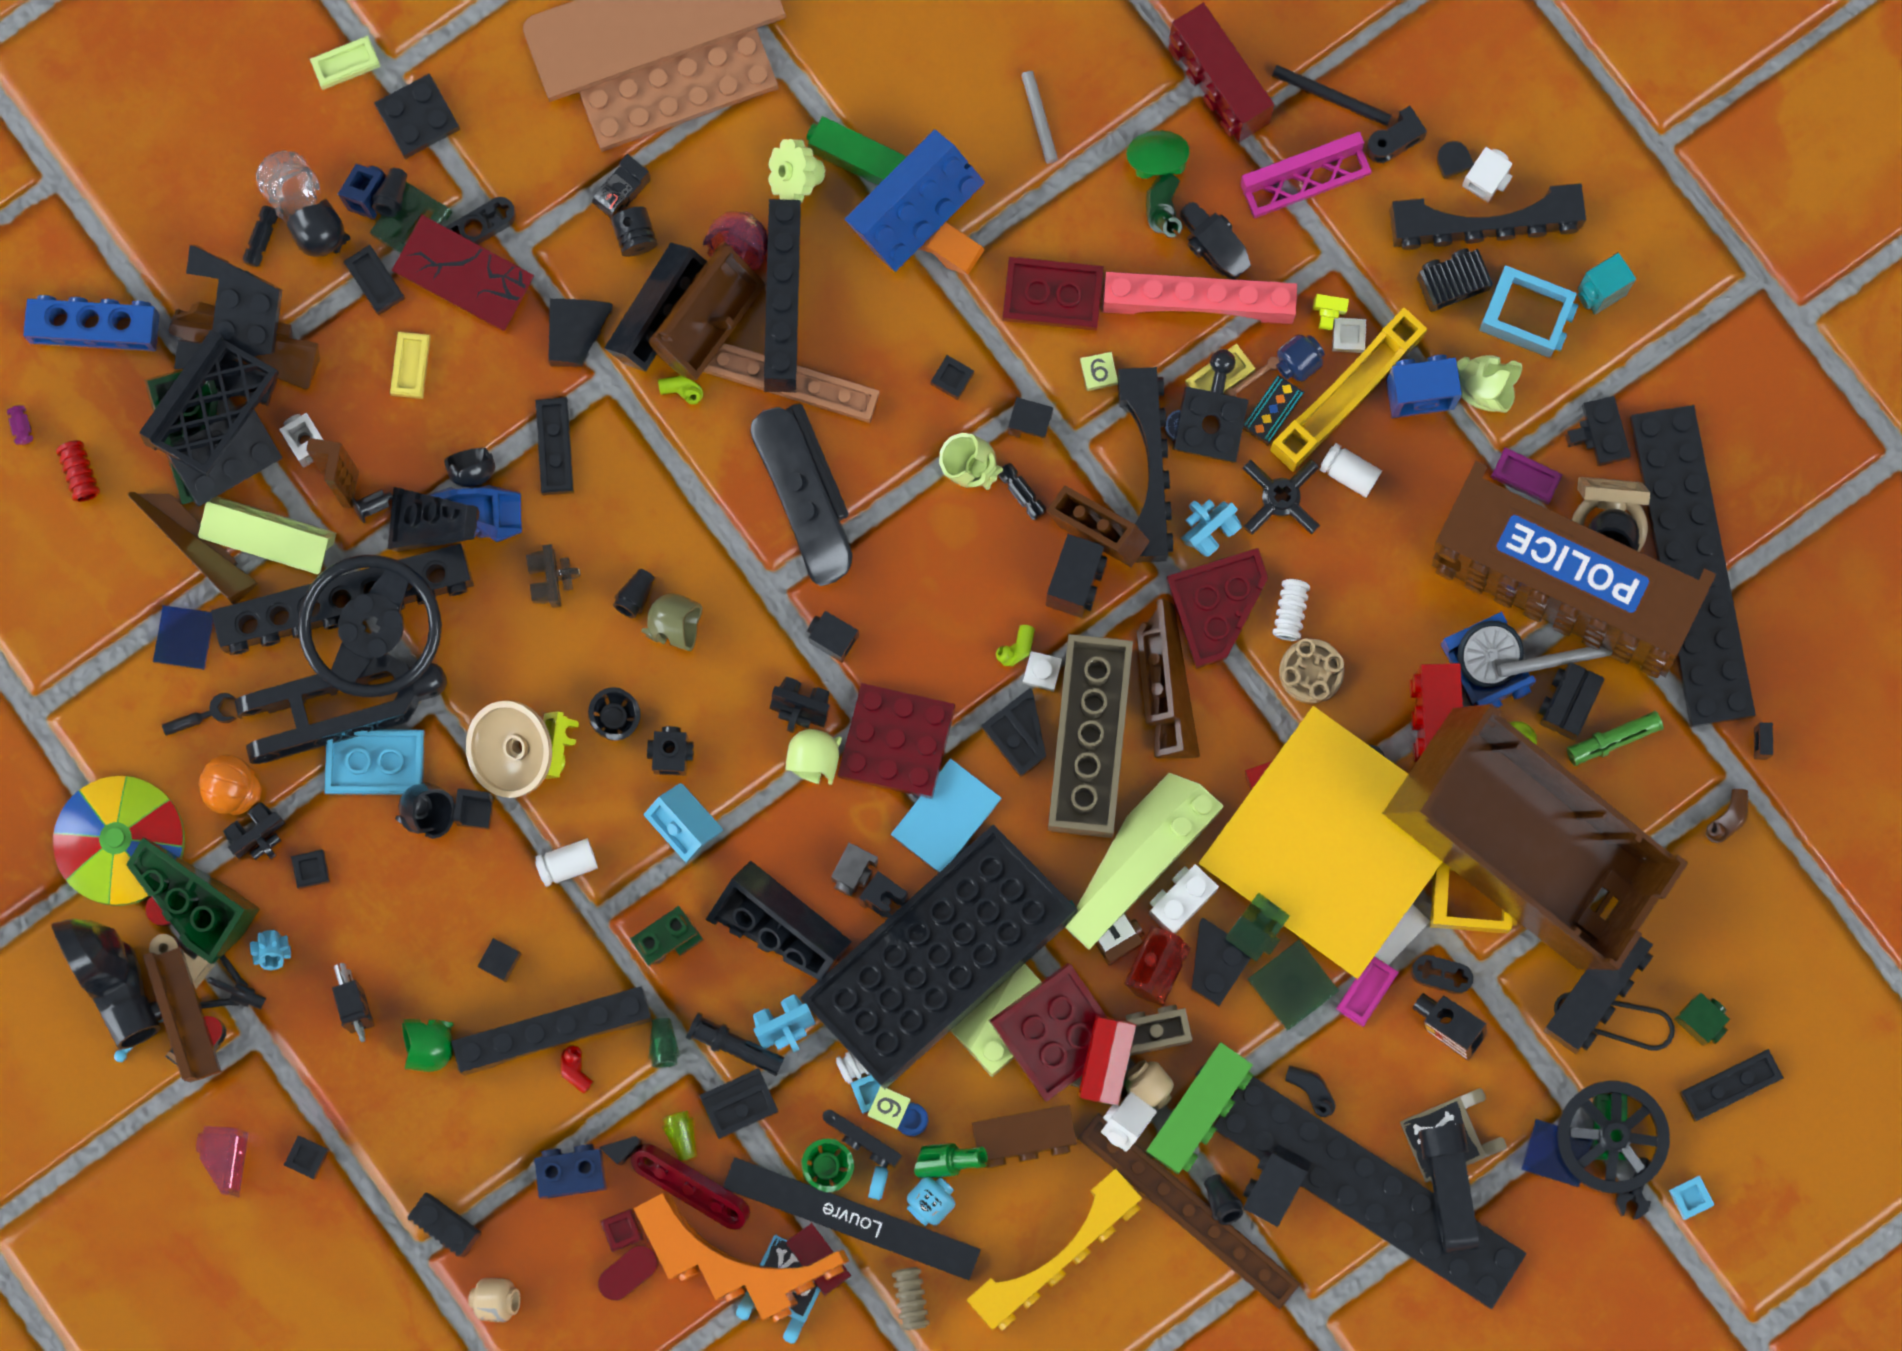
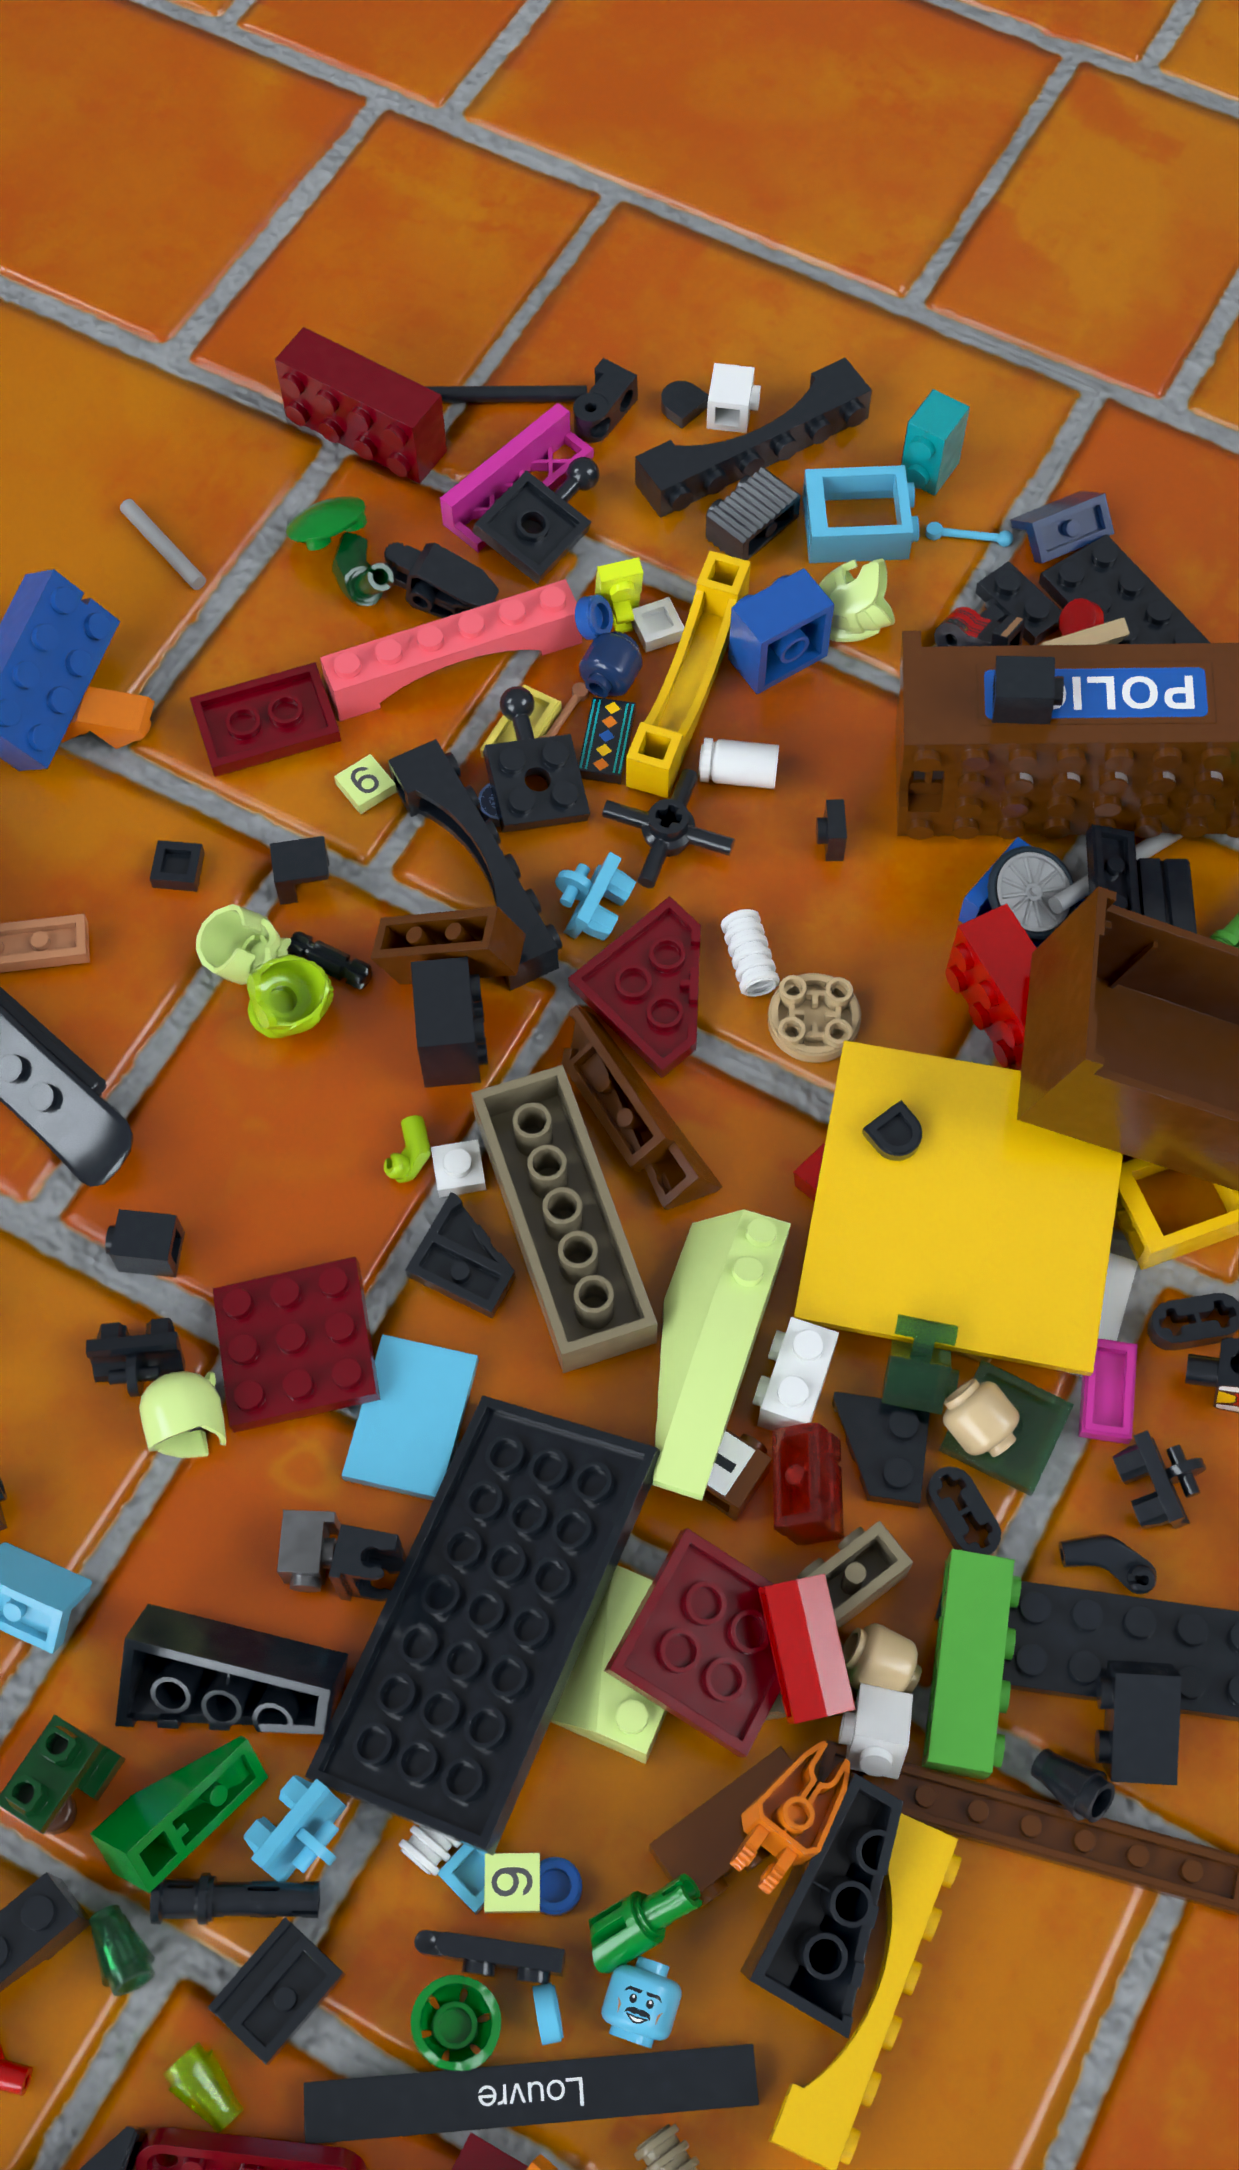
camera: 25 degrees left, 15 degrees down
(722, 985) = (177, 1813): none -> green slope
(985, 511) = (288, 996): none -> lime hair
(1051, 1201) = (826, 1911): none -> black wedge
(1054, 1144) = (792, 1816): none -> orange hinge
(1249, 1022) = (972, 1507): none -> black beam
(1276, 975) = (981, 1418): none -> tan head
(1303, 320) = (593, 616): none -> blue tile
(1313, 780) = (895, 1133): none -> black tile
(1318, 223) = (534, 501): none -> black plate
(1366, 1044) = (1164, 1504): none -> black hips
(1386, 547) = (832, 830): none -> black plate
(1525, 545) = (1025, 689): none -> black brick
(1542, 677) = (1113, 864): none -> black tile
(1559, 450) = (974, 630): none -> black leg
(1579, 345) = (935, 530): none -> medium azure hinge
(1636, 467) = (1080, 615): none -> red tile
(1669, 382) = (1065, 524): none -> dark blue panel

